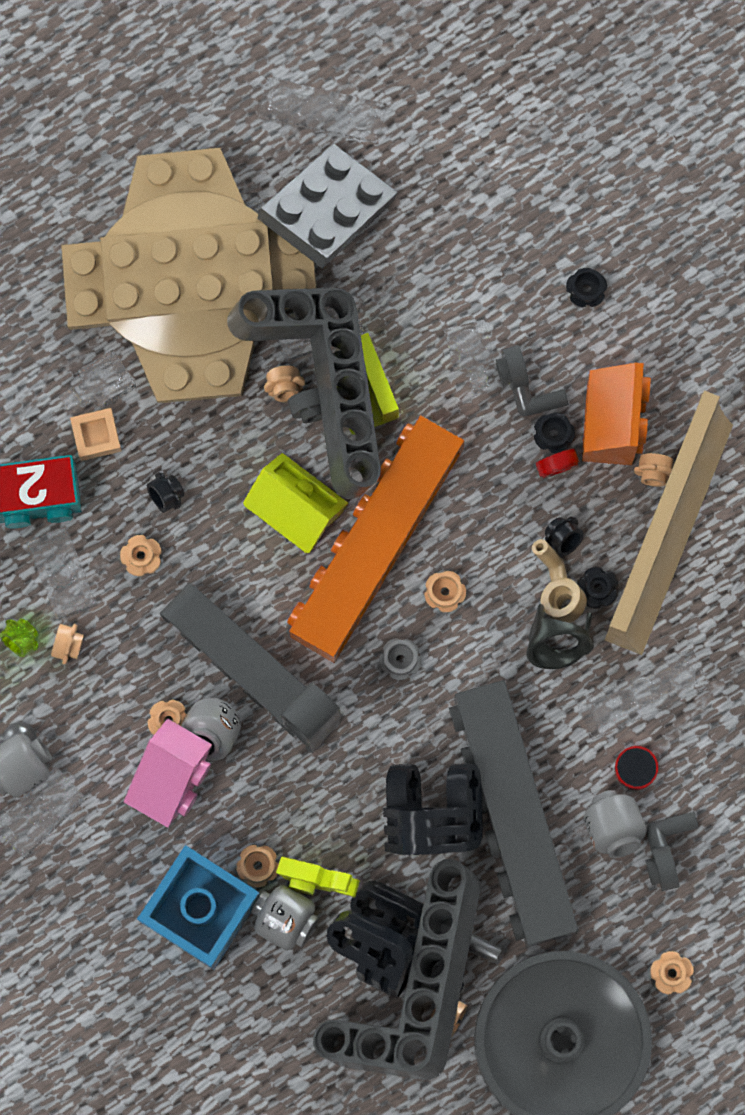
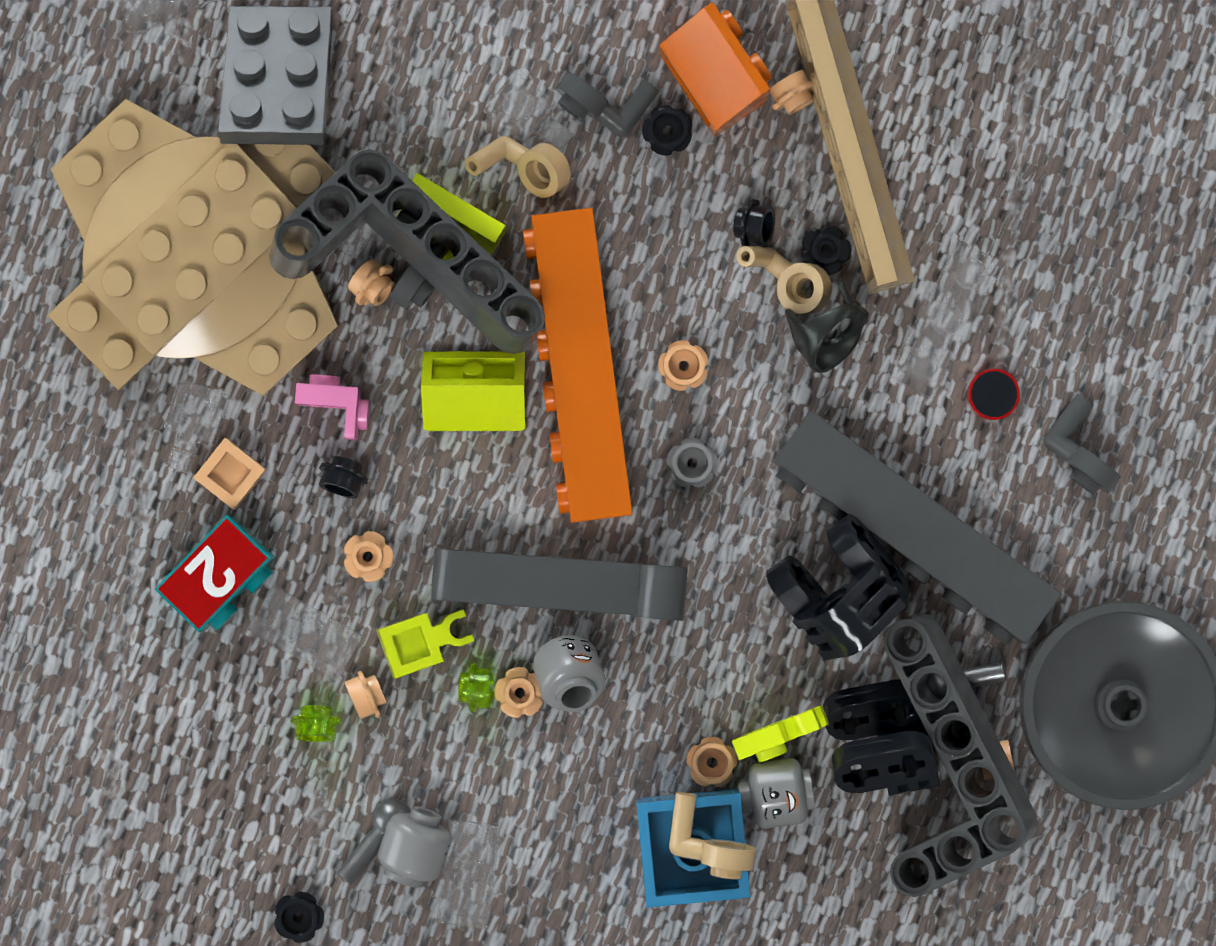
camera: 40 degrees left, 10 degrees up
(126, 634) = (416, 643): none -> neon yellow plate
(140, 692) = (474, 687): none -> clear neon green plate
(168, 774) = (565, 747): bright pink piece -> none
(199, 430) = (327, 393): none -> bright pink bracket
(213, 922) = (723, 856): none -> tan plate
(451, 393) = (540, 169): none -> tan plate
(557, 463) = (696, 158): red tile -> none
(615, 824) = (1015, 464): light grey head -> none
(668, 984) = (1159, 563): light nougat plate -> none

